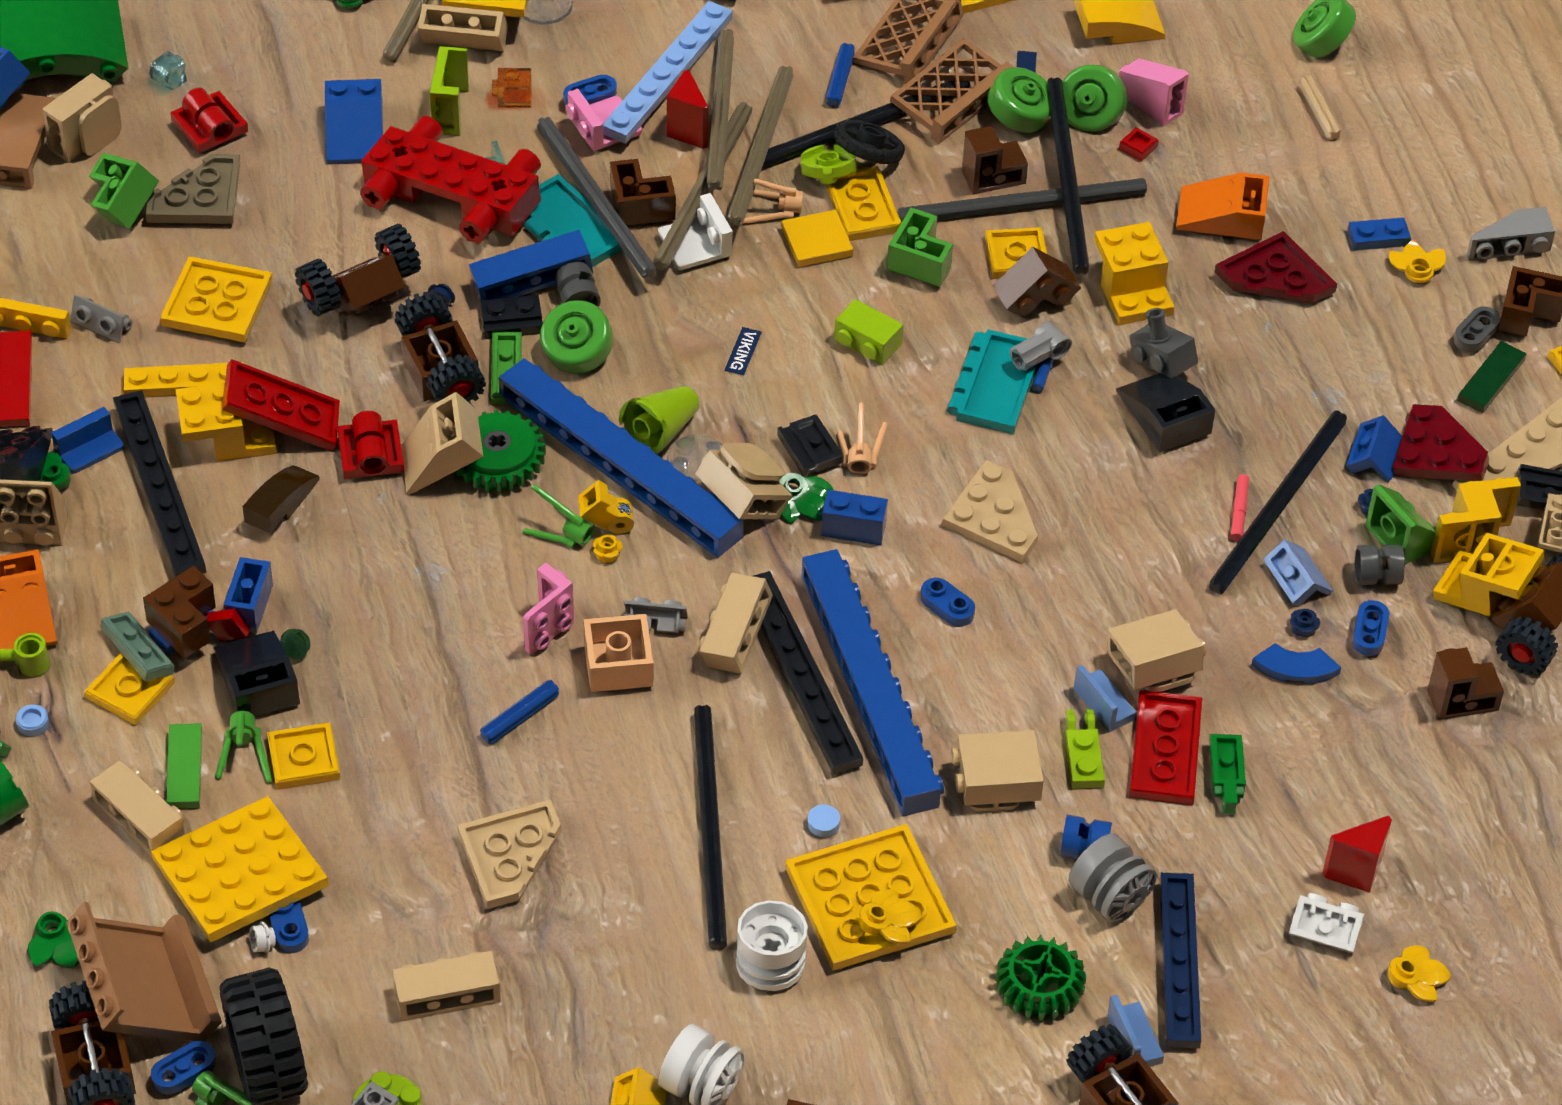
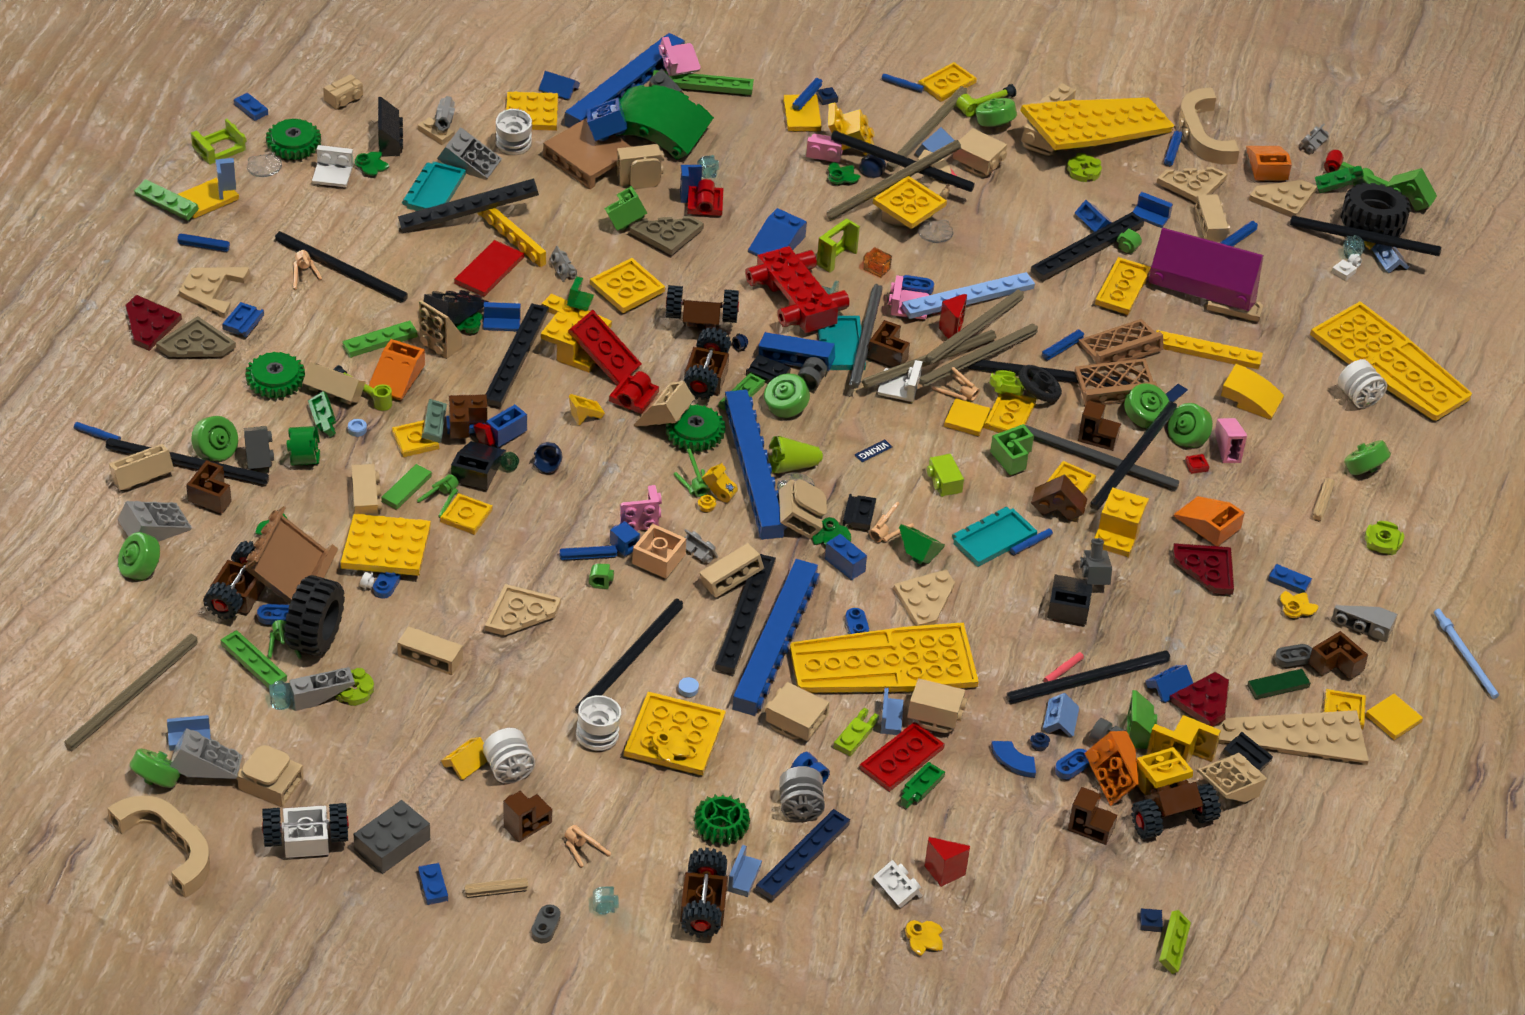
camera: 35 degrees right, 5 degrees down
(167, 101) = (689, 177): none -> blue panel
(170, 353) = (578, 298): none -> green panel
(278, 497) = (560, 389): dark brown slope -> none
(325, 509) = (584, 407): none -> yellow slope
(345, 607) = (548, 457): none -> dark blue hair
(462, 27) = (877, 219): tan brick -> none
(554, 661) = (624, 538): none -> blue brick
(571, 734) = (601, 576): none -> bright green plate
(928, 445) = (920, 545): none -> green slope
(1030, 629) = (885, 660): none -> yellow wing
(1045, 343) = (1035, 530): light grey piece -> none
(1427, 129) = (1393, 540): none -> lime plate
(1434, 600) = (1114, 765): none -> orange slope

